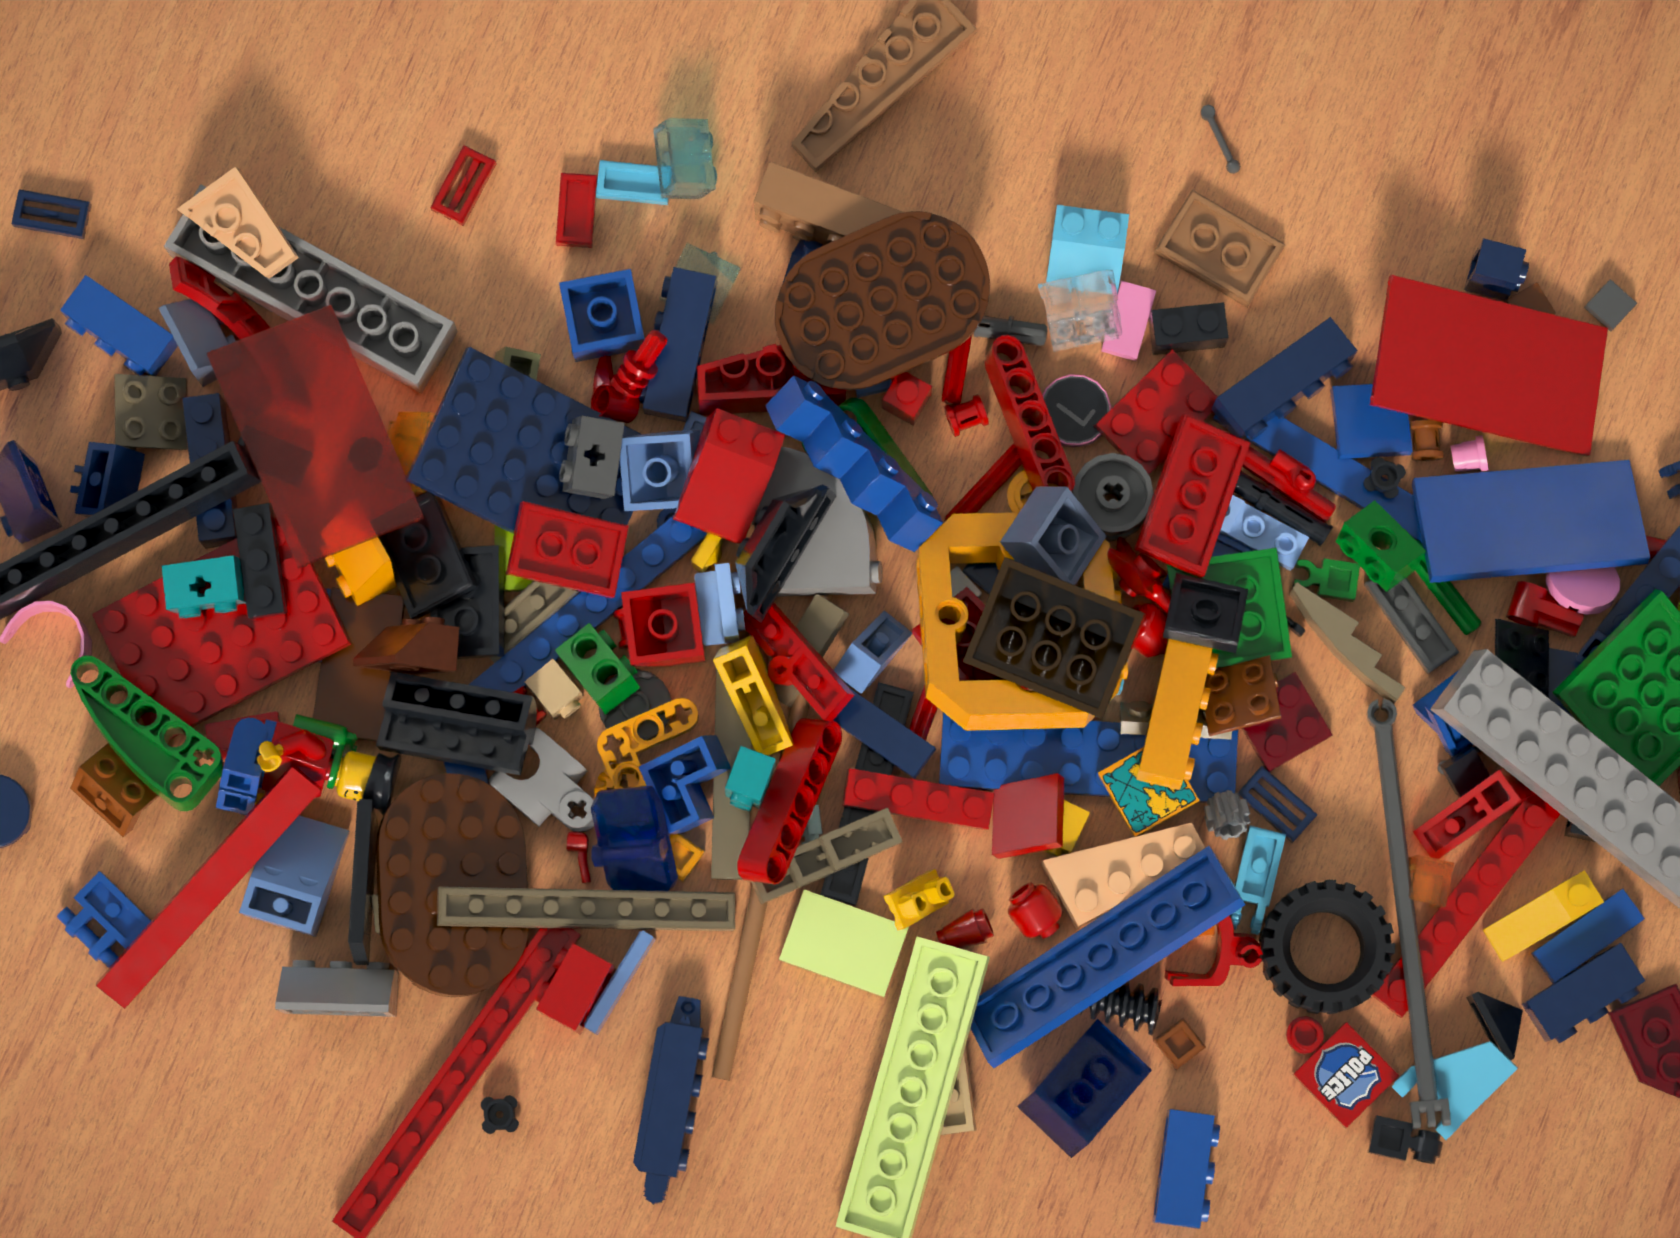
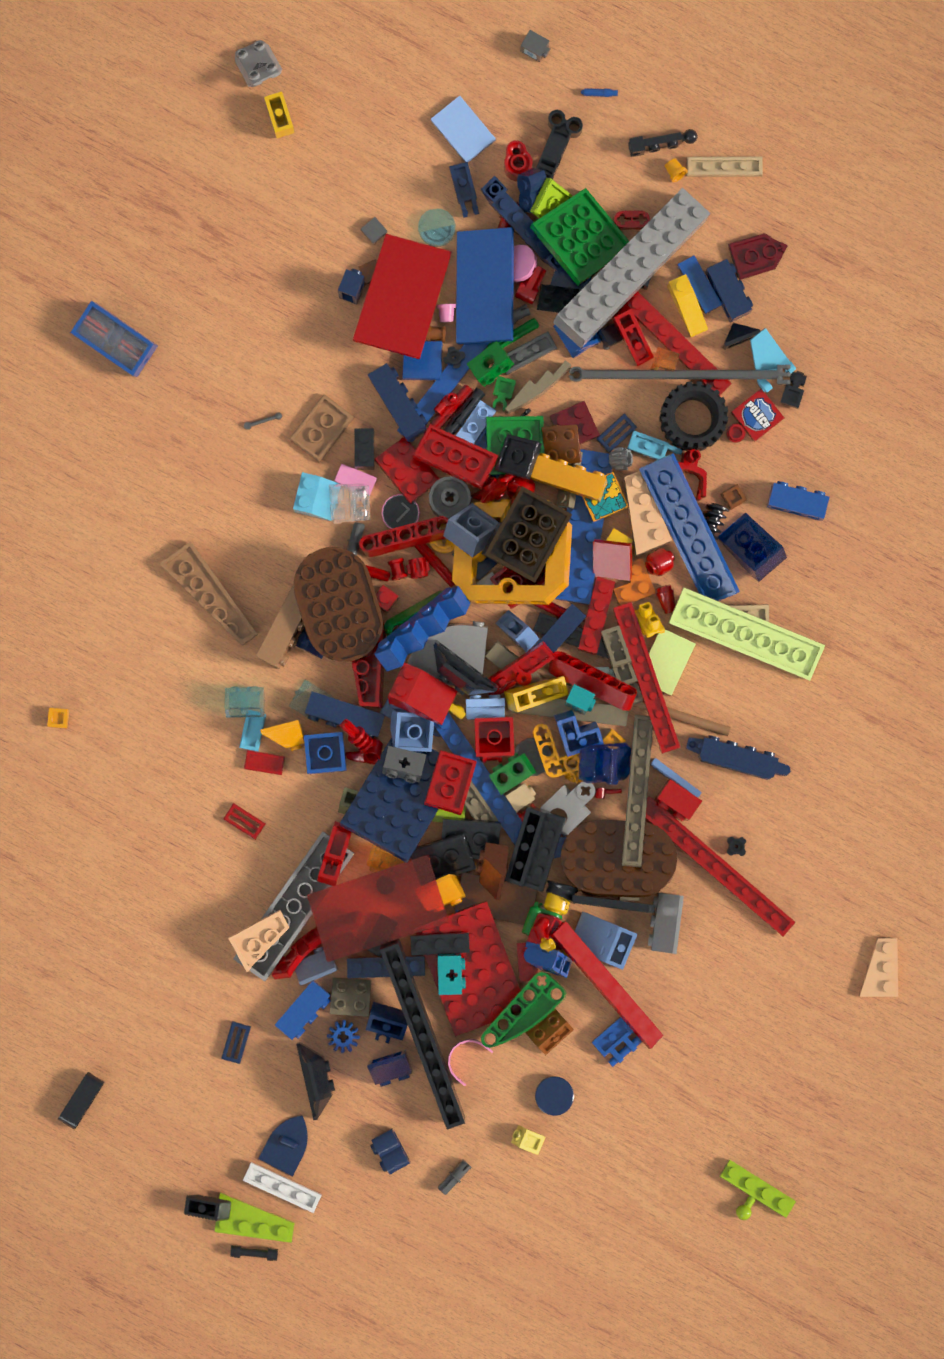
camera: 90 degrees left, 5 degrees up
(67, 398) = (338, 1041): none -> blue gear
(408, 345) = (334, 855): none -> red slope
(629, 239) = (287, 735): none -> light orange slope
(806, 905) = (646, 678): none -> red plate
(972, 452) = (418, 568): none -> red gear
(984, 878) = (639, 586): none -> orange plate
(1485, 594) = (520, 313): none -> dark grey pin
(1632, 422) = (436, 227): none -> clear light blue tile

